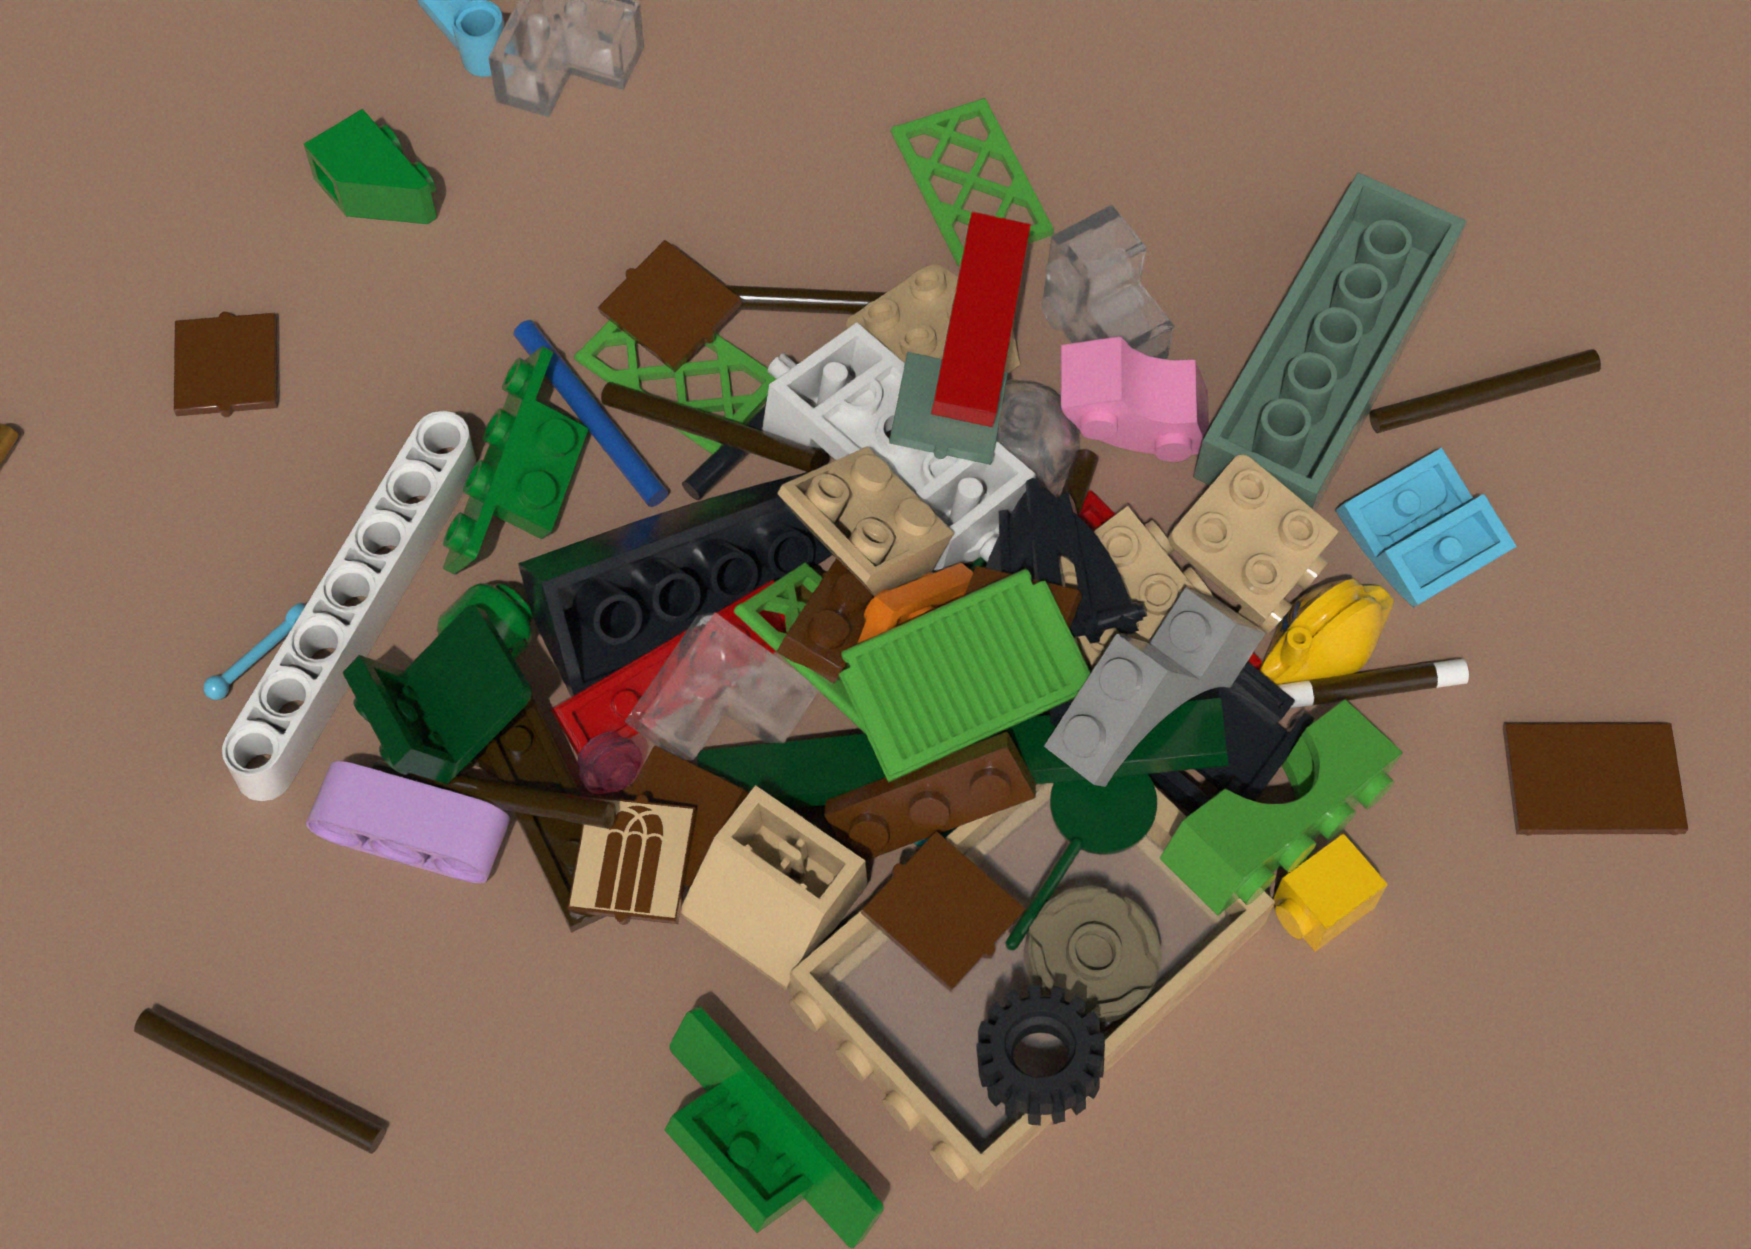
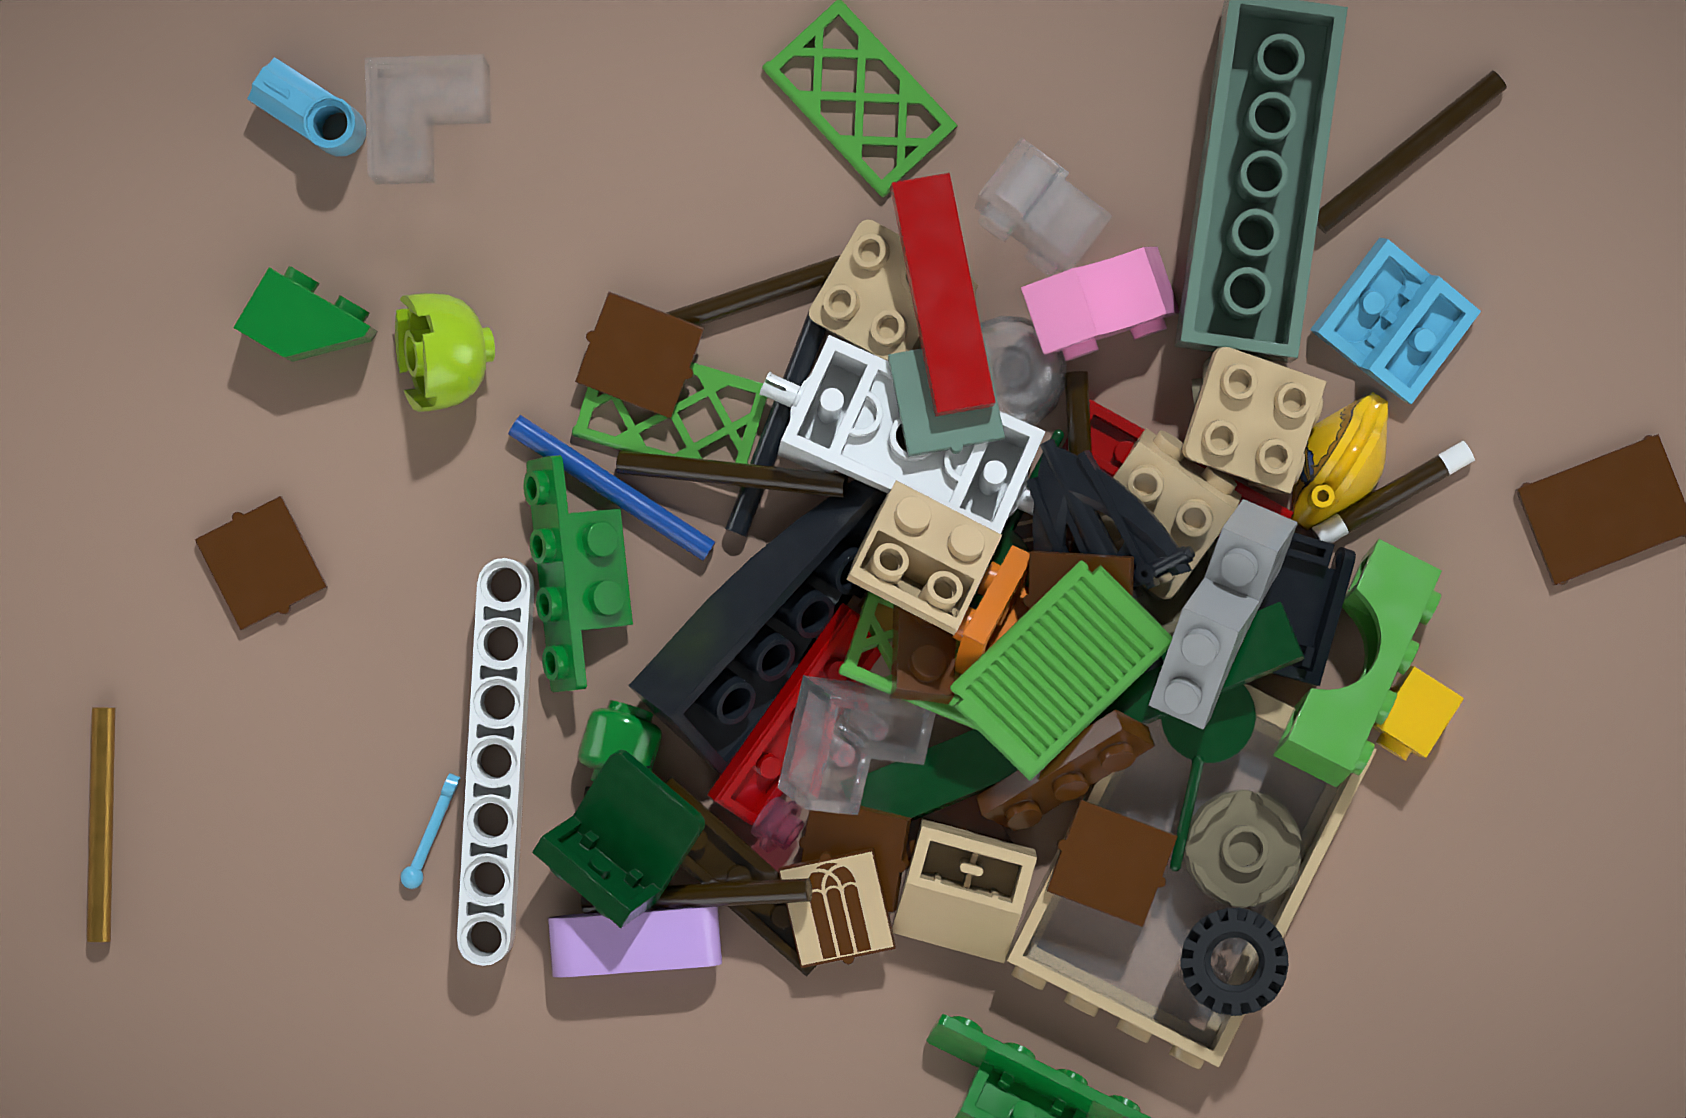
camera: 20 degrees left, 25 degrees up
(488, 232) = (442, 349): none -> lime cylinder

